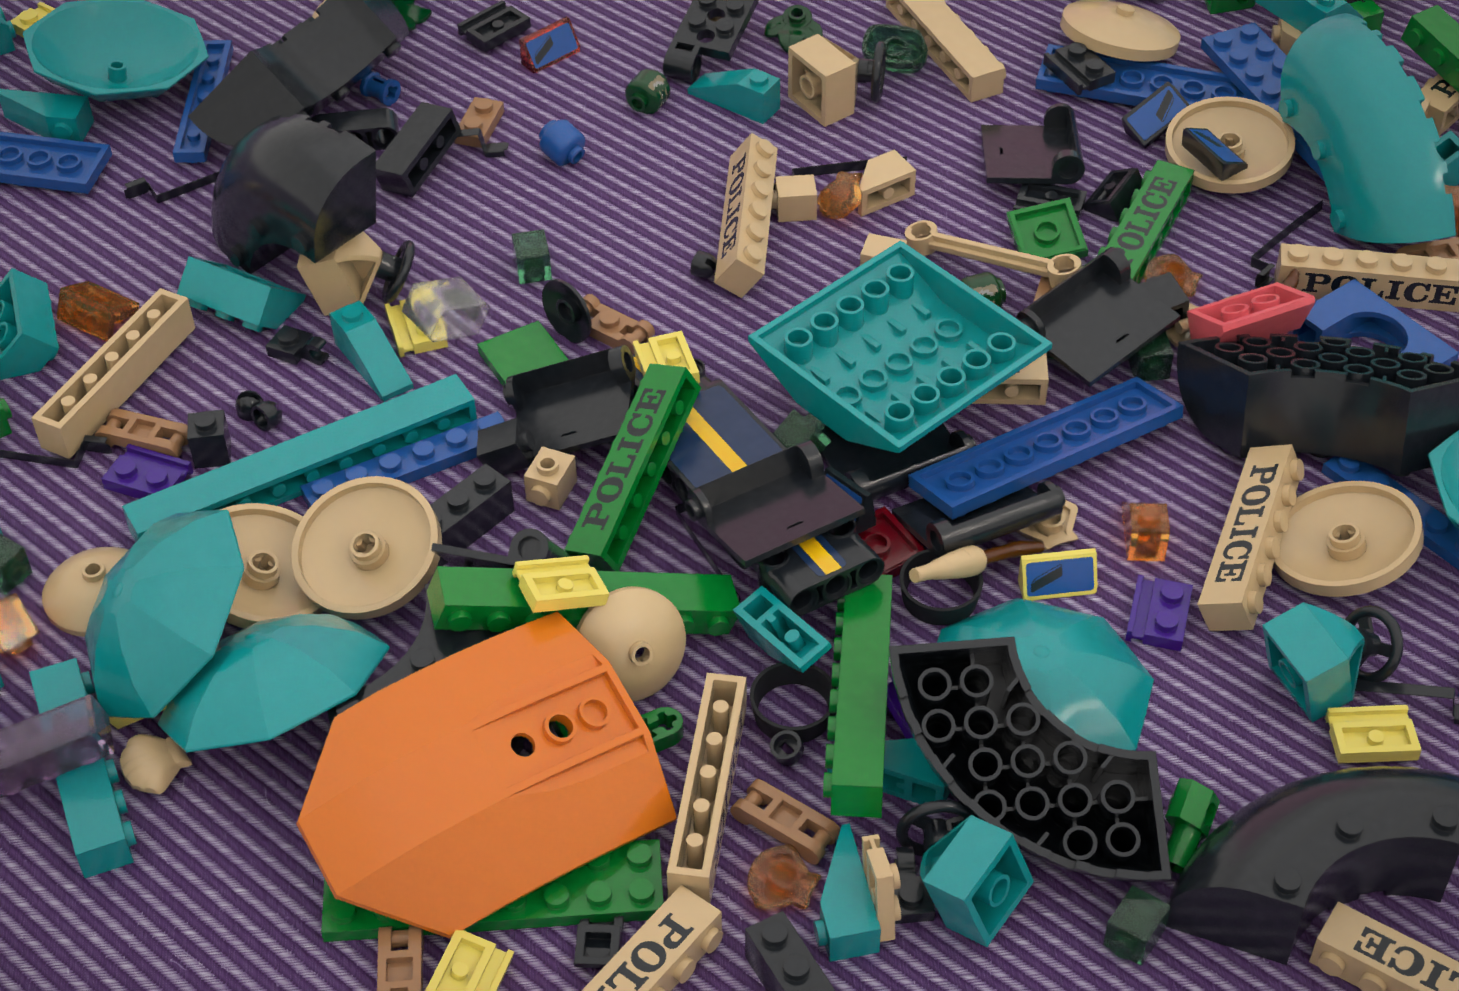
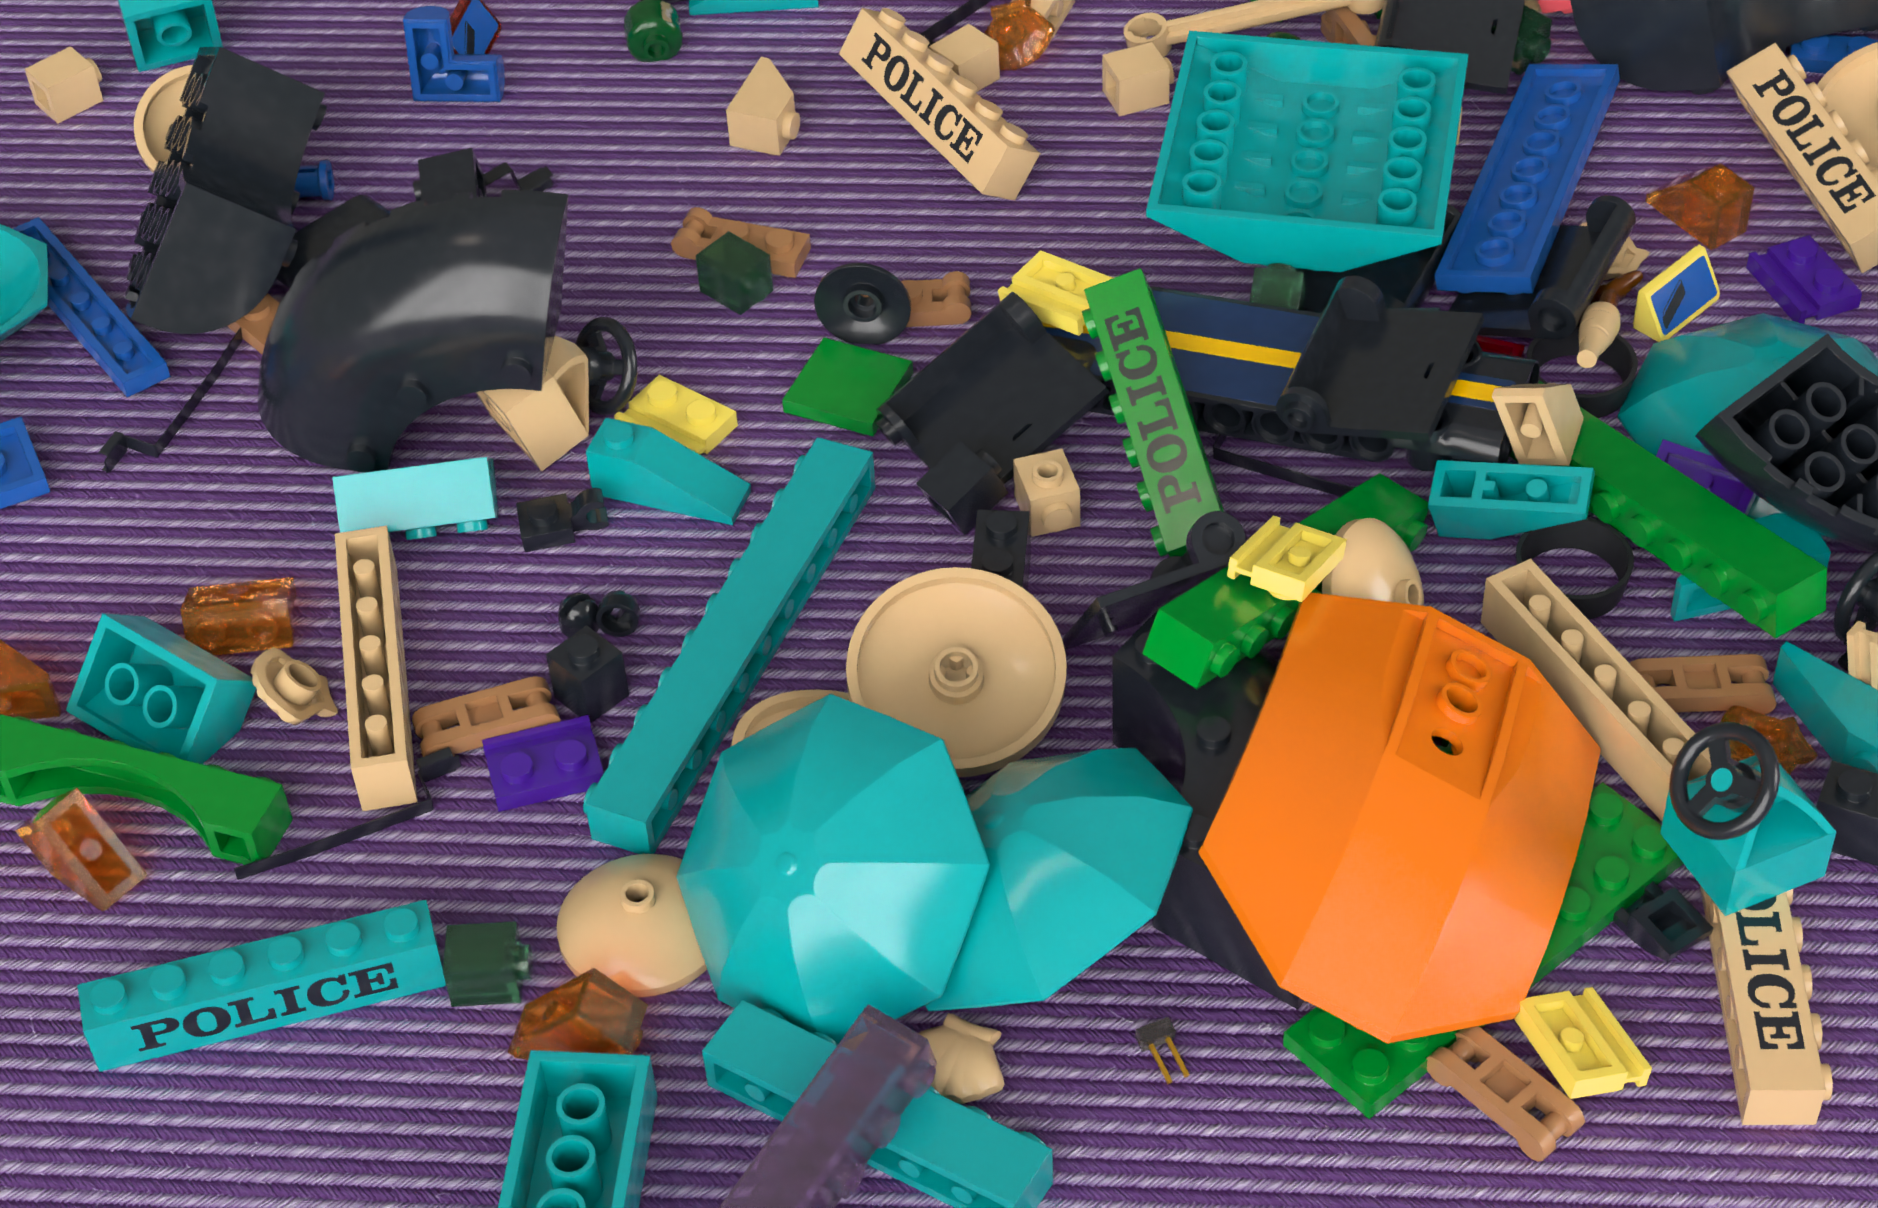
camera: 35 degrees left, 0 degrees up
(66, 356) = (291, 687): none -> tan animal
(264, 818) = (1158, 1034): none -> clear smoke piece
(410, 461) = (847, 579): blue plate -> none
(433, 307) = (716, 372): clear piece -> none
(481, 114) = (485, 150): medium nougat plate -> none
(494, 26) = (367, 46): black plate -> none
(506, 55) = (440, 73): none -> blue brick
(562, 142) = (619, 132): blue head -> none
(563, 244) = (786, 247): none -> medium nougat plate
(652, 169) = (763, 112): none -> tan slope
(664, 910) = (1743, 823): none -> teal piece
(703, 265) = (944, 183): black hinge -> none
(792, 741) = (1624, 608): black hinge -> none
(835, 593) = (1540, 421): none -> tan slope

